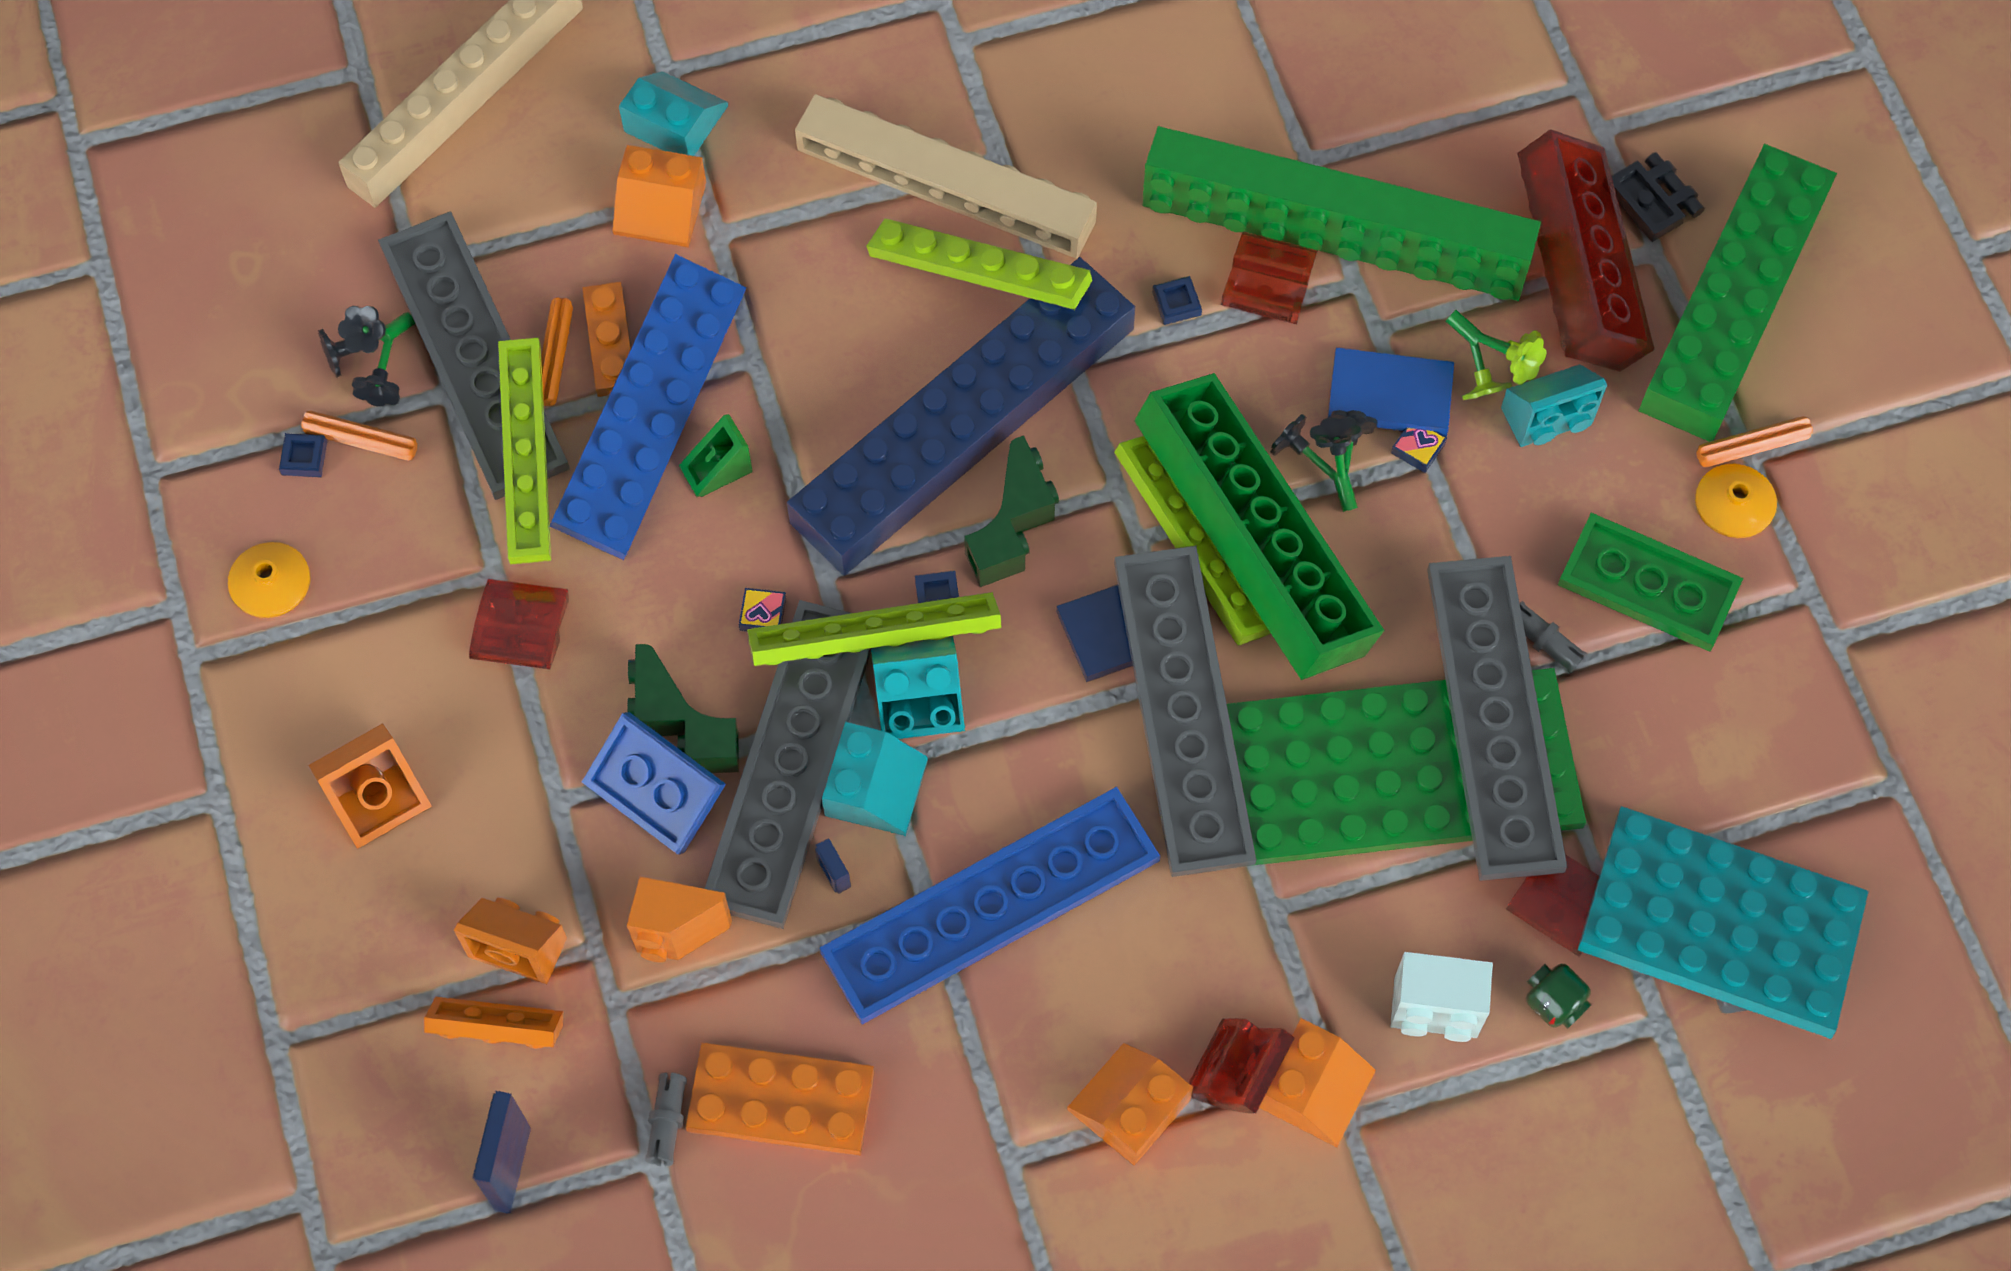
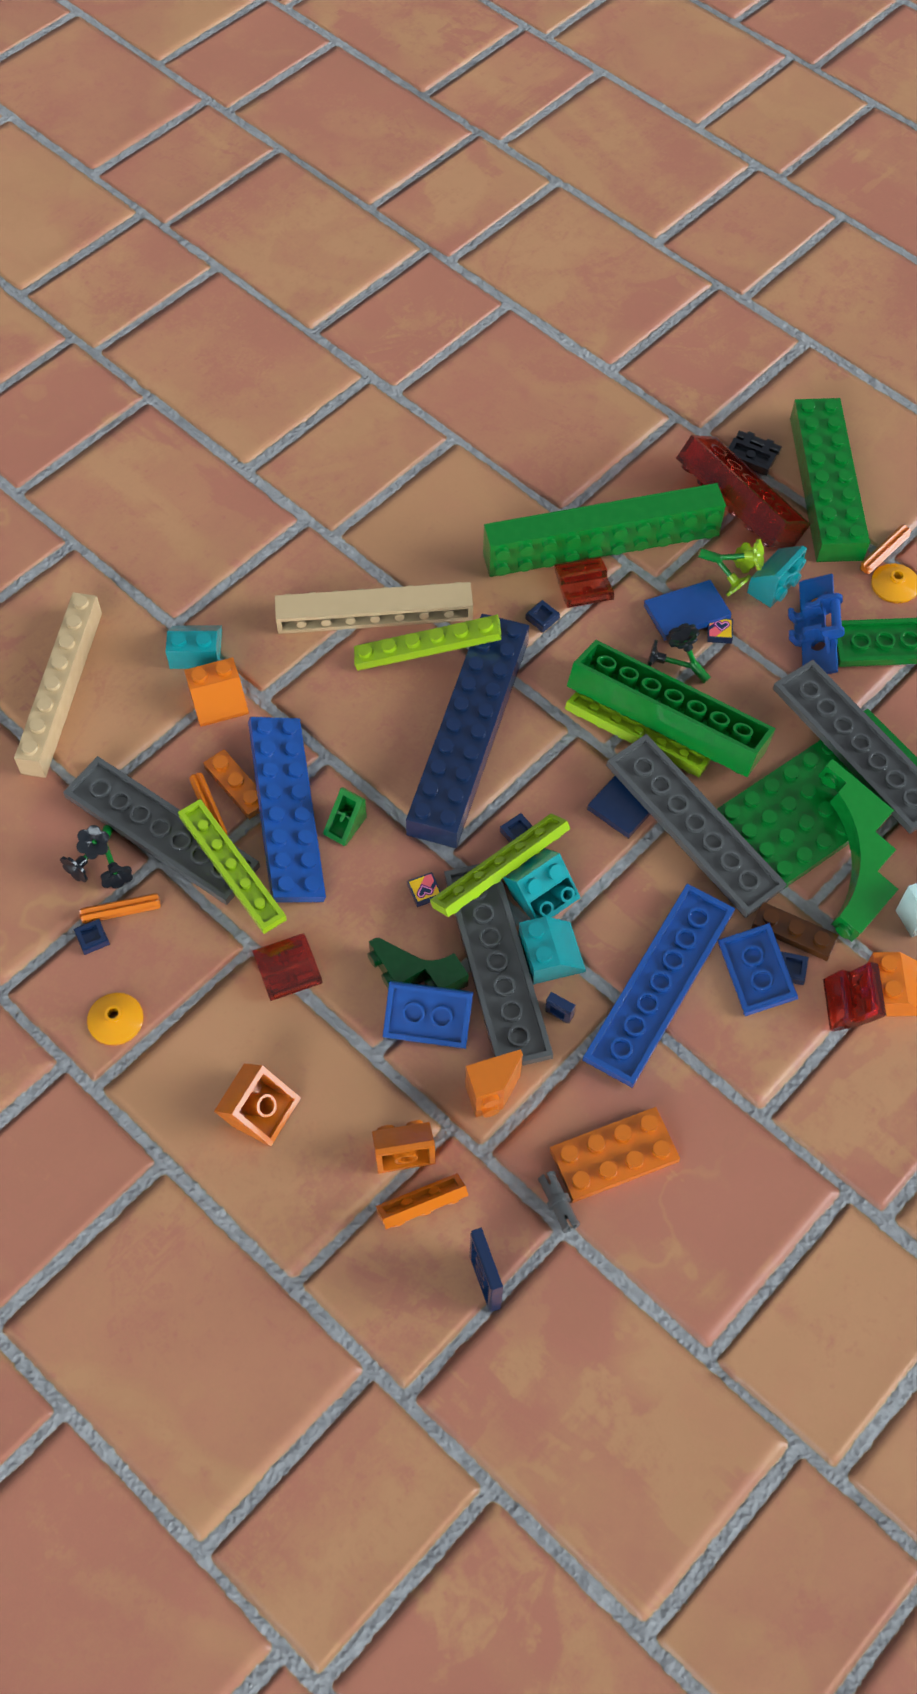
camera: 30 degrees left, 5 degrees down
(1027, 502) = (533, 758): dark green arch -> none
(1131, 1101) = (809, 1048): orange slope -> none
(1136, 956) = (757, 969): none -> blue tile
(1188, 980) = (796, 967): none -> dark blue tile
(1227, 932) = (797, 931): none -> reddish brown plate
(1422, 823) = (861, 816): none -> green arch
(1550, 640) = (861, 696): dark grey pin -> none
(1564, 505) = (810, 628): none -> blue piece

